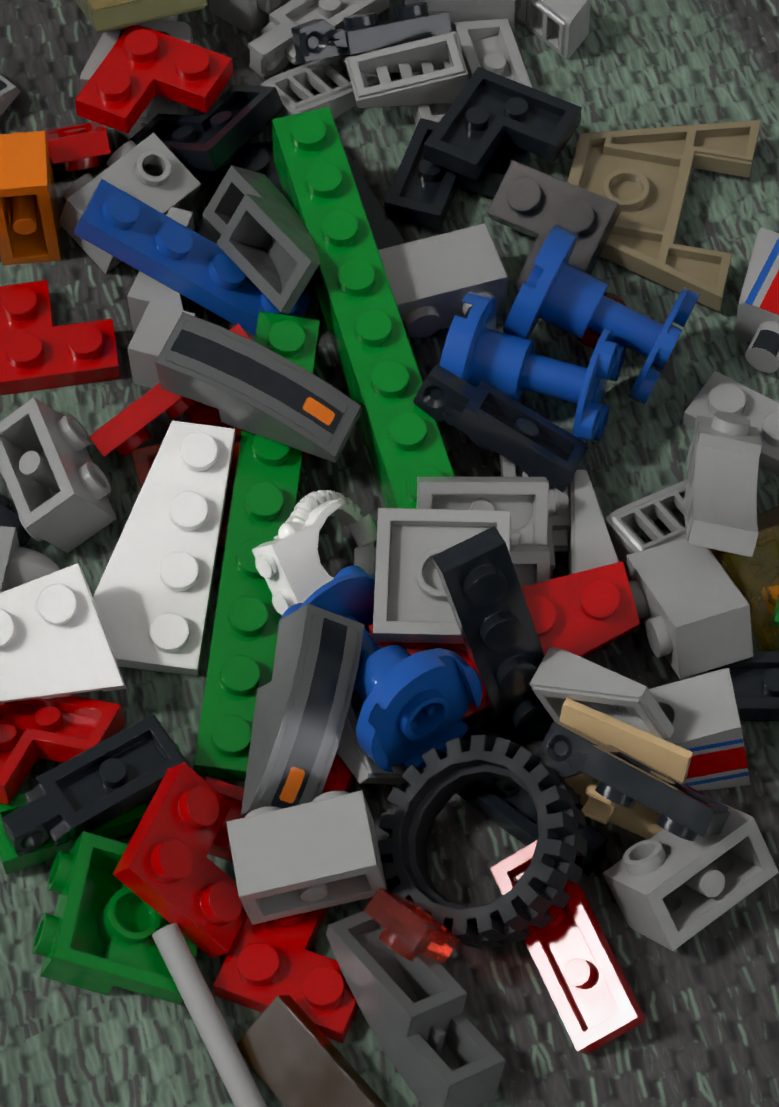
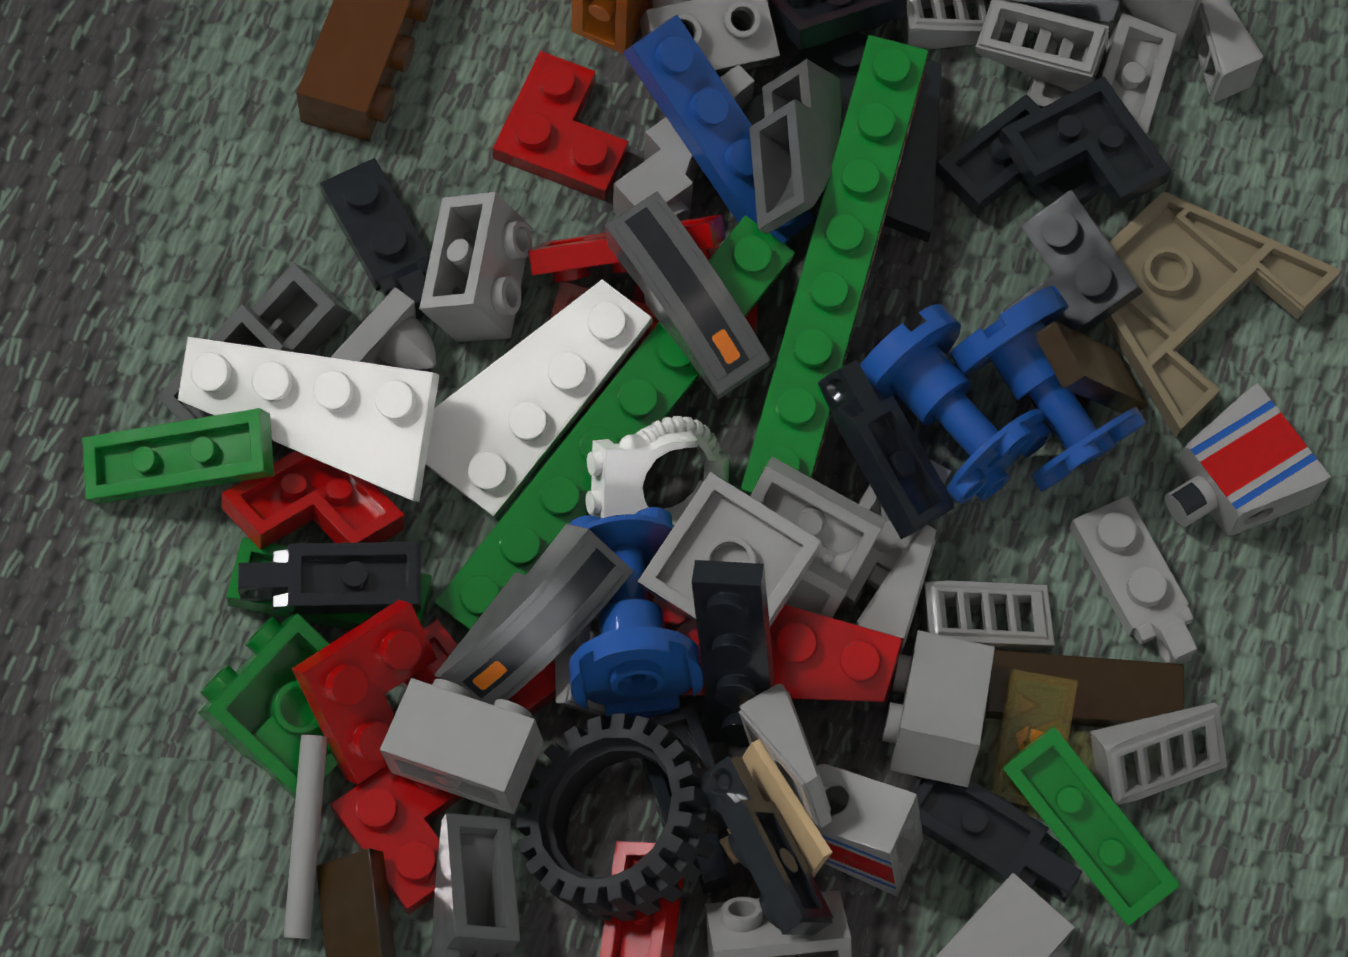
camera: 25 degrees right, 10 degrees up
(409, 928) = (505, 858): clear red plate -> none
(436, 274) = (935, 263): light grey brick -> none
(626, 278) = (1090, 368): none -> dark brown tile
(723, 484) = (1044, 616): light grey slope -> none

